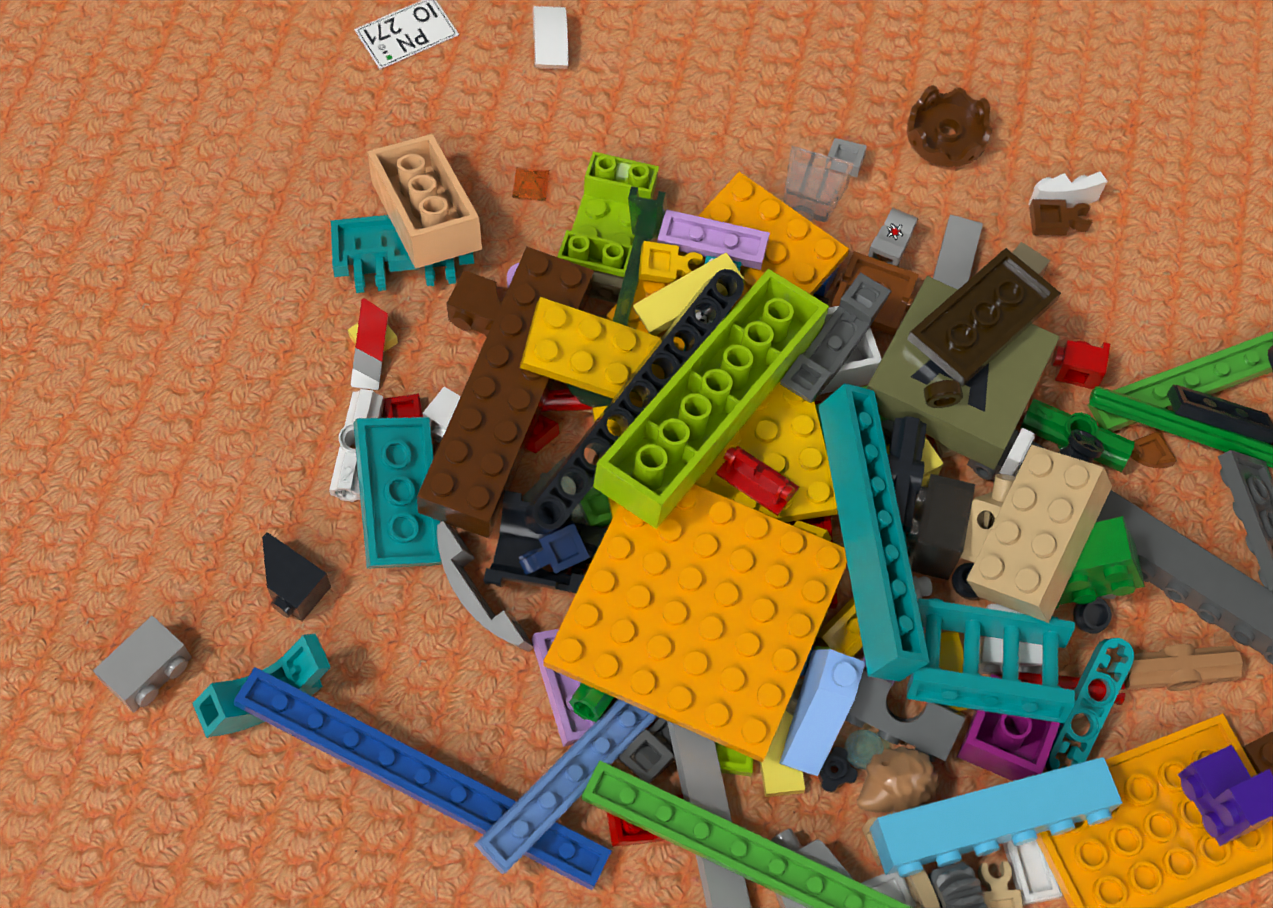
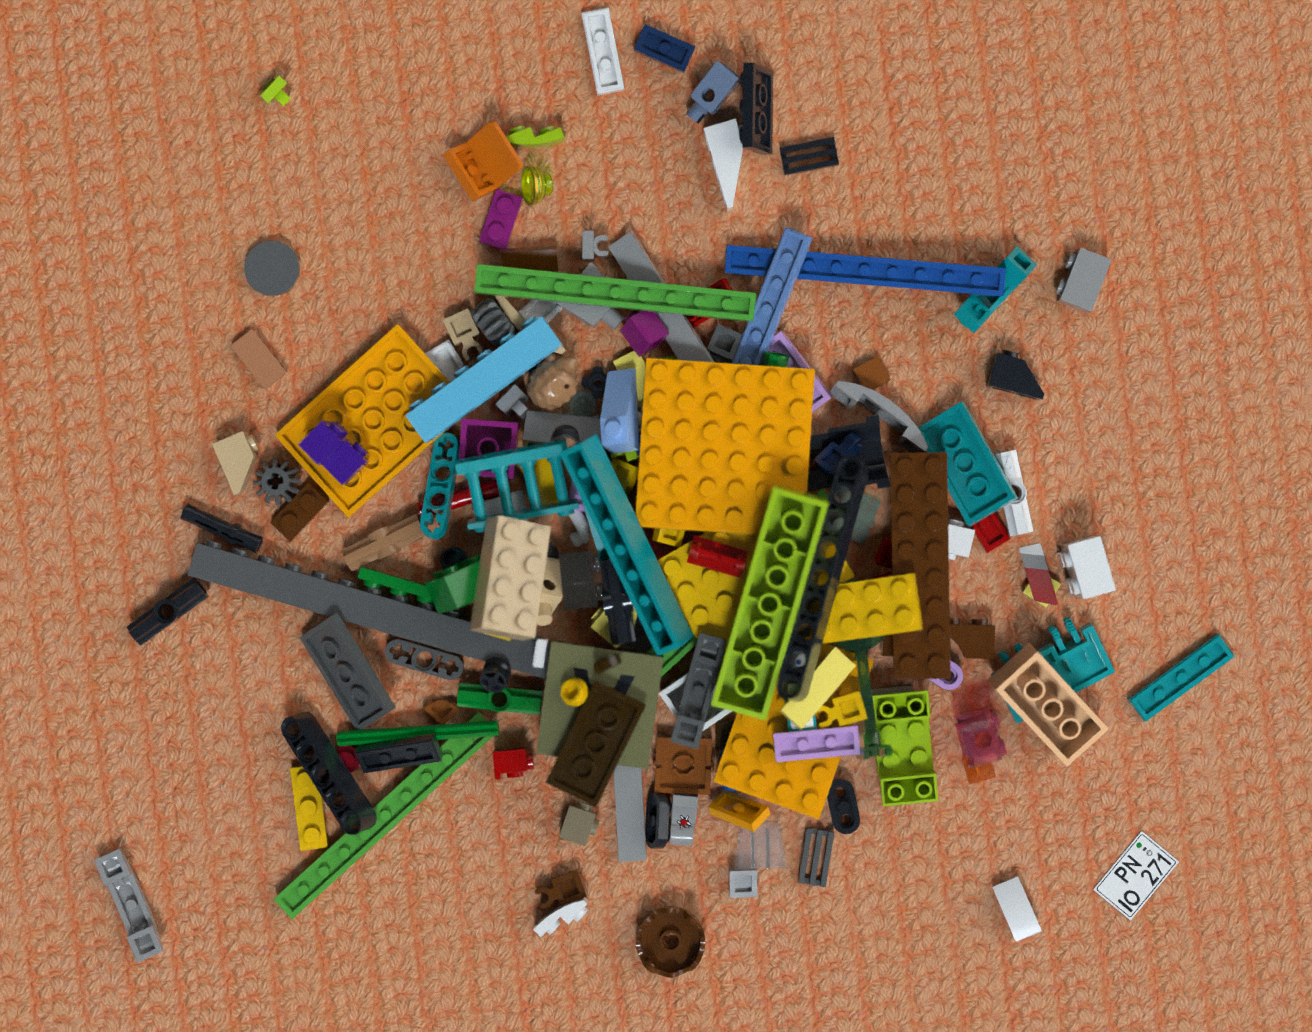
camera: 165 degrees right, 25 degrees up
(259, 193) = (1181, 677): none -> teal tile
(308, 326) = (1086, 567): none -> white brick
(469, 650) = (872, 373): none -> dark orange tile
(517, 198) = (967, 728): none -> clear pink brick
(700, 195) = (843, 805): none -> black plate
(752, 806) = (644, 331): none -> magenta brick
(763, 138) = (812, 880): none -> dark grey tile
(825, 212) = (739, 810): none -> light orange plate
(924, 246) = (657, 820): none -> black plate
(957, 779) = (513, 403): none -> light grey tile
(994, 378) = (574, 692): none -> yellow plate
(1156, 499) = (402, 660): none -> dark grey beam
(1176, 612) = (398, 585): none -> green plate

